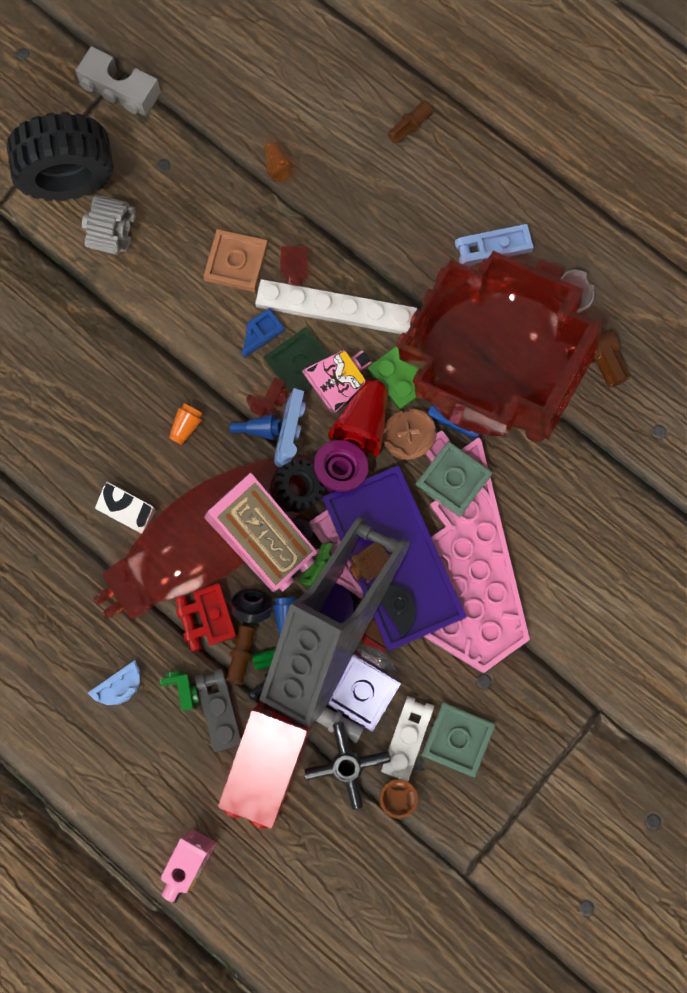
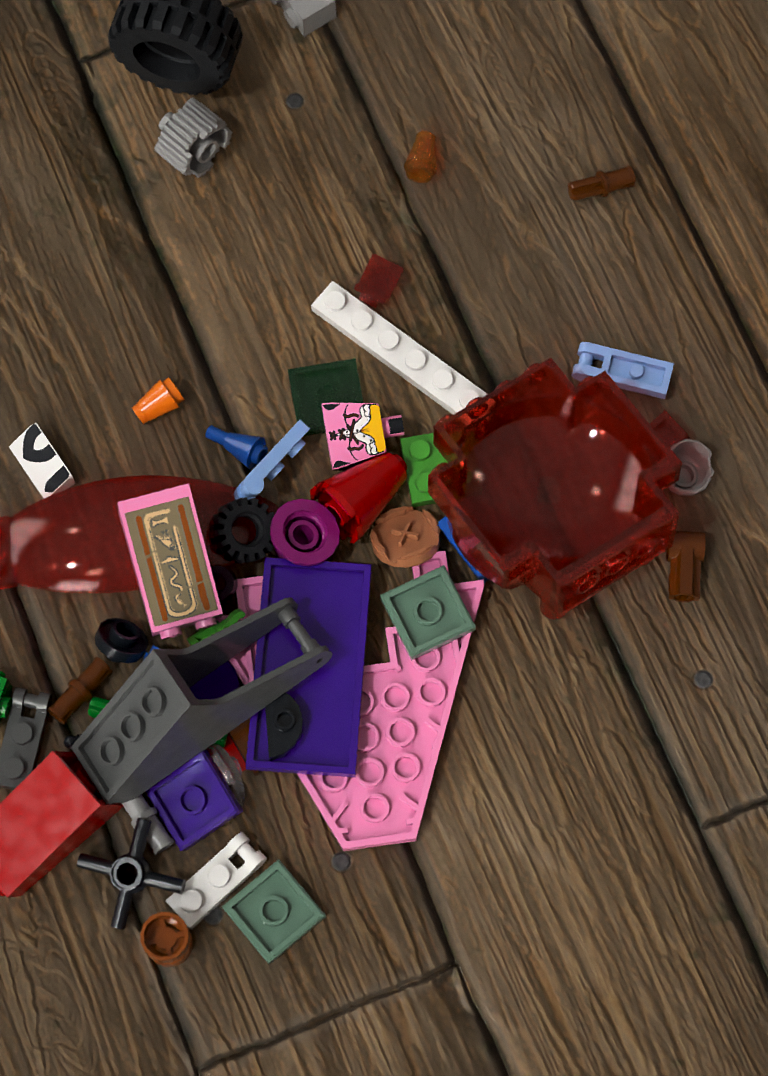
camera: 25 degrees right, 5 degrees down
(213, 614) = (74, 631): red plate -> none
(235, 260) = (316, 246): nougat tile -> none
(261, 331) = (301, 340): blue tile -> none
(275, 397) = (273, 421): clear red bracket -> none
(369, 562) = (273, 653): clear orange bracket -> none

